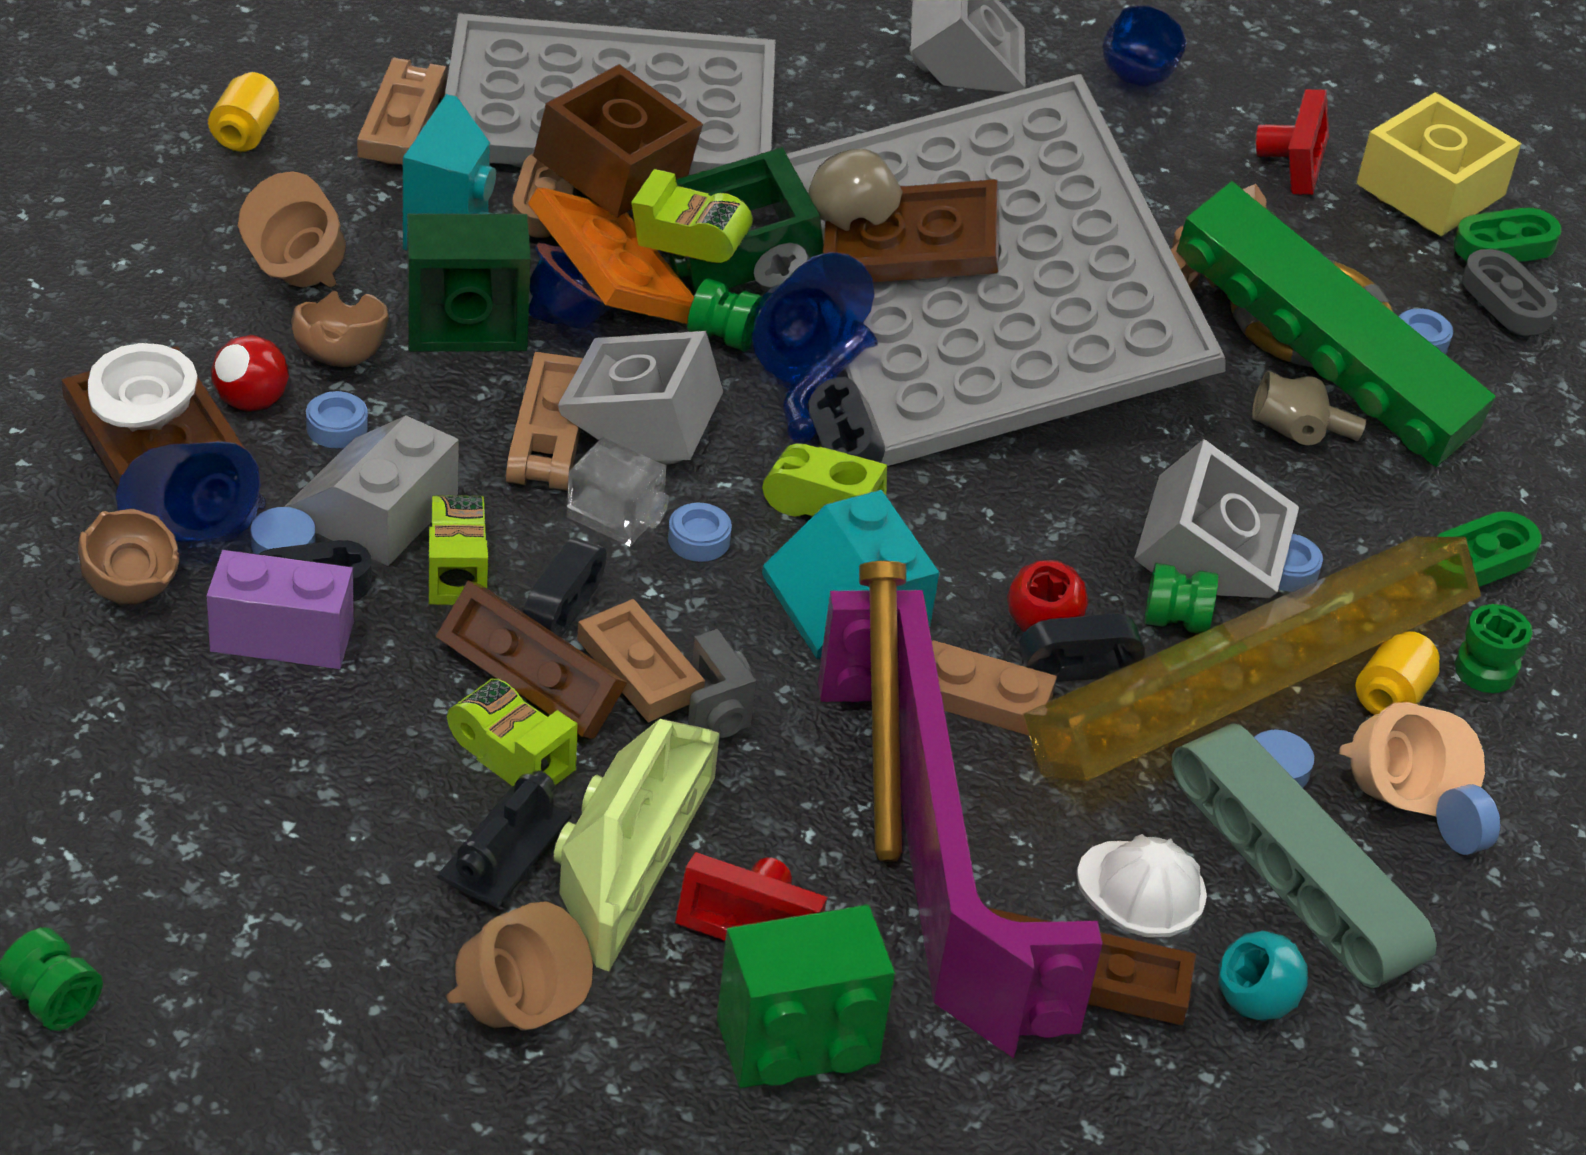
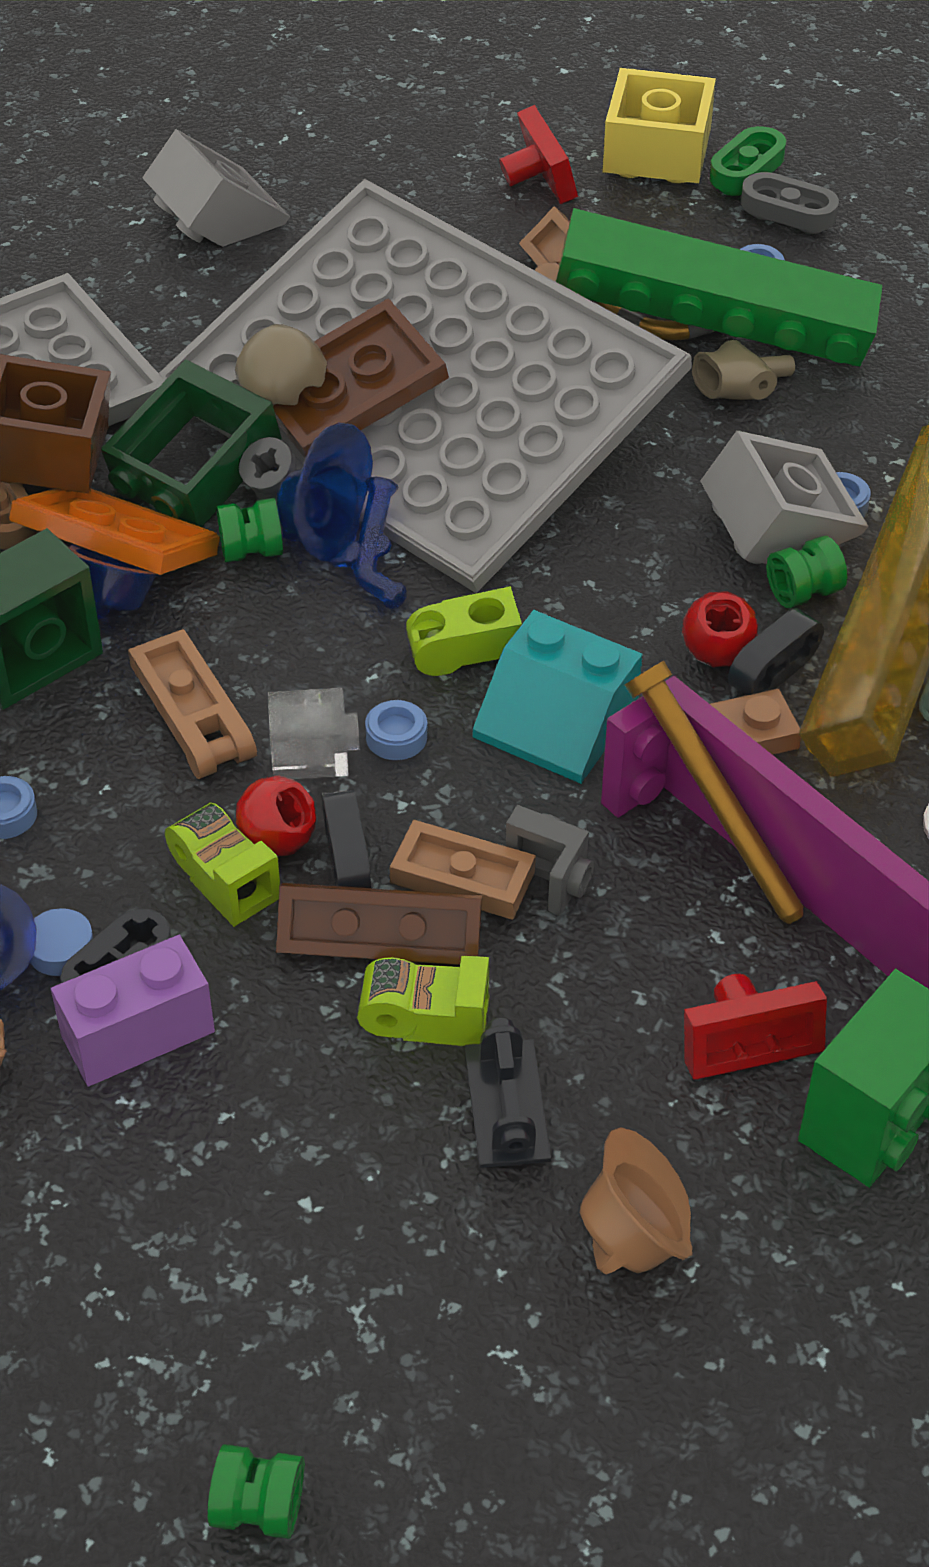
camera: 30 degrees left, 5 degrees up
(382, 487) = (103, 845): light grey slope -> none
(526, 535) = (277, 814): none -> red piece
(632, 830) = (605, 1034): yellowish green wedge -> none
(646, 393) = (255, 634): light grey slope -> none
(688, 220) = (173, 462): lime leg -> none
(856, 422) = (439, 562): black beam -> none
(1143, 45) = (359, 136): clear blue hair -> none

